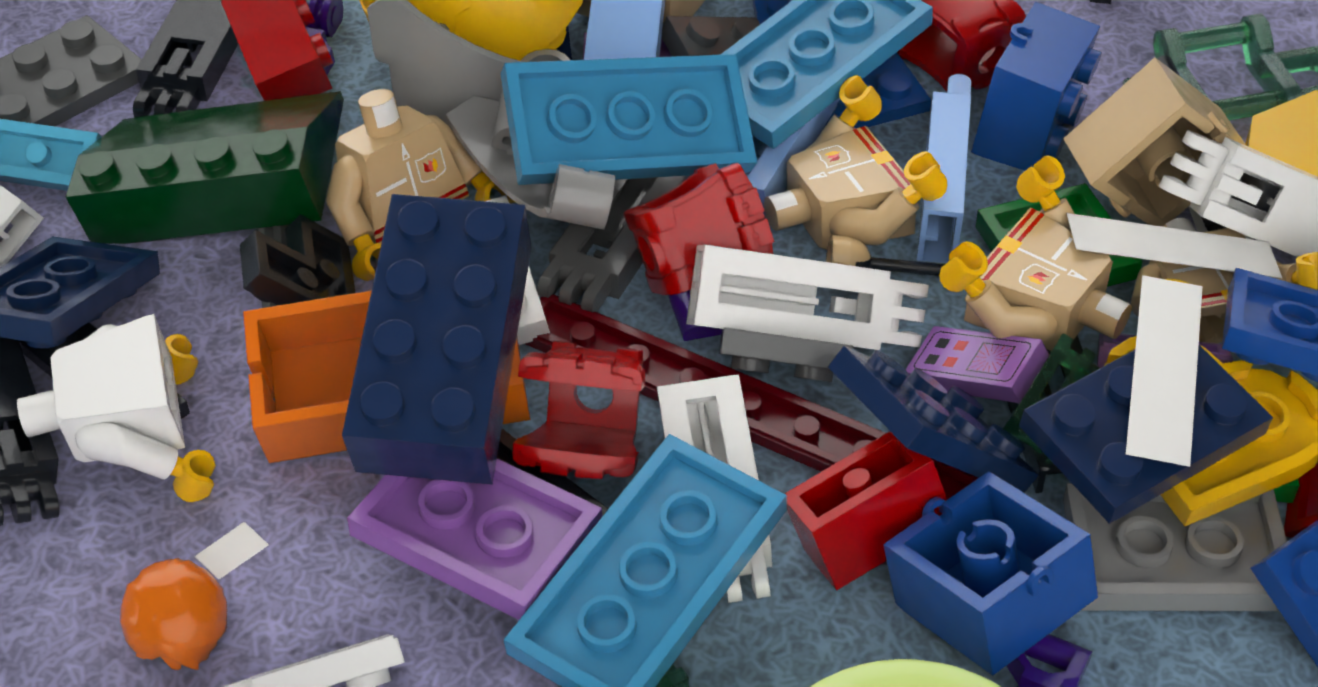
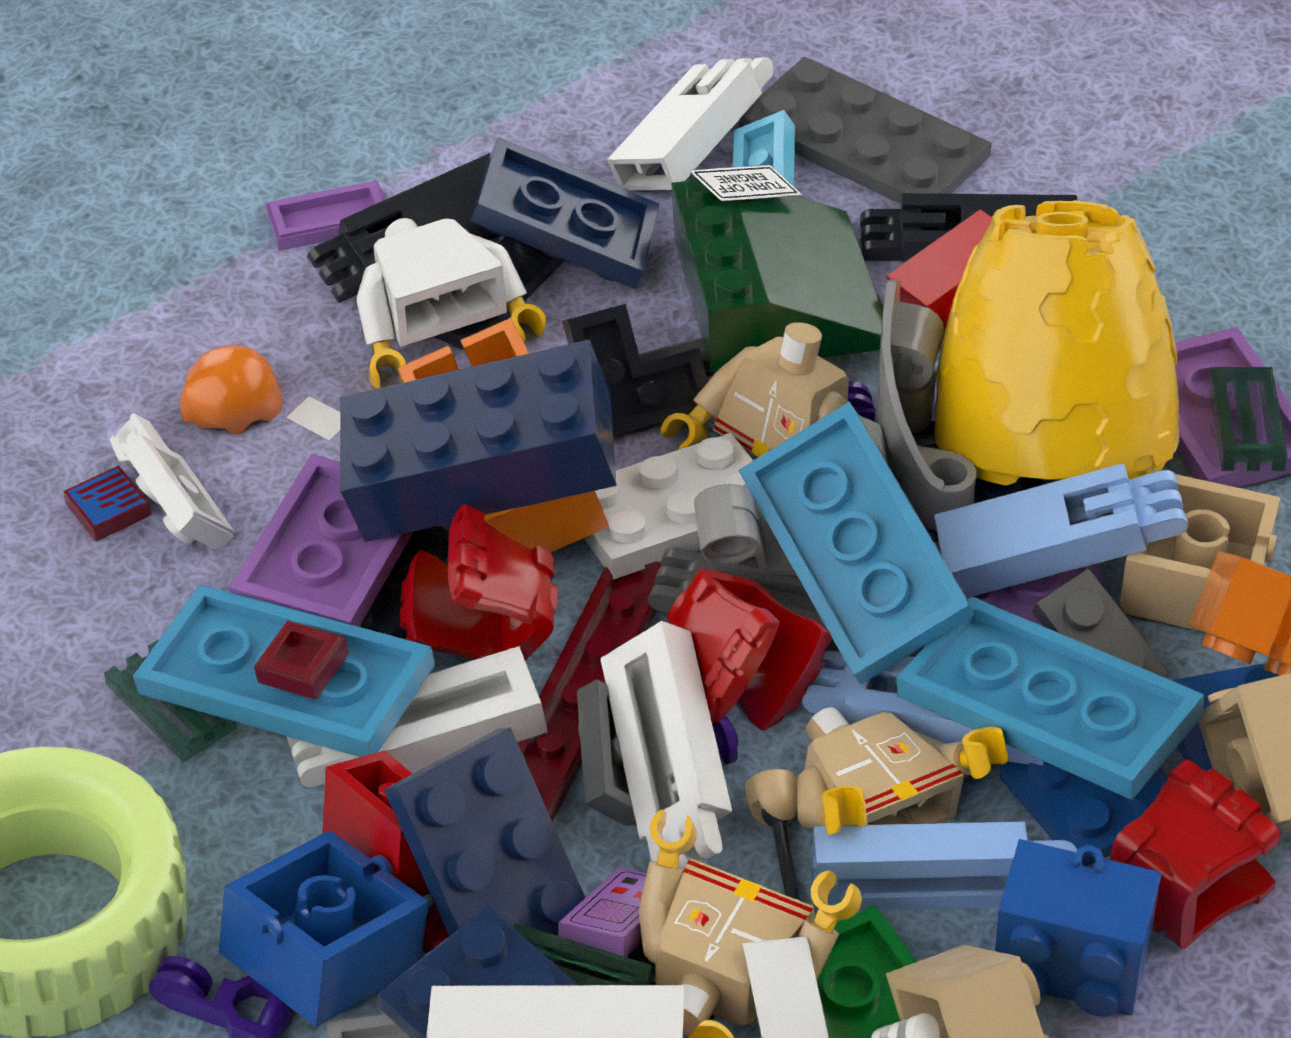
camera: 80 degrees right, 0 degrees up
(101, 141) = (745, 182): none -> white sticker
(664, 539) = (301, 660): none -> dark red tile

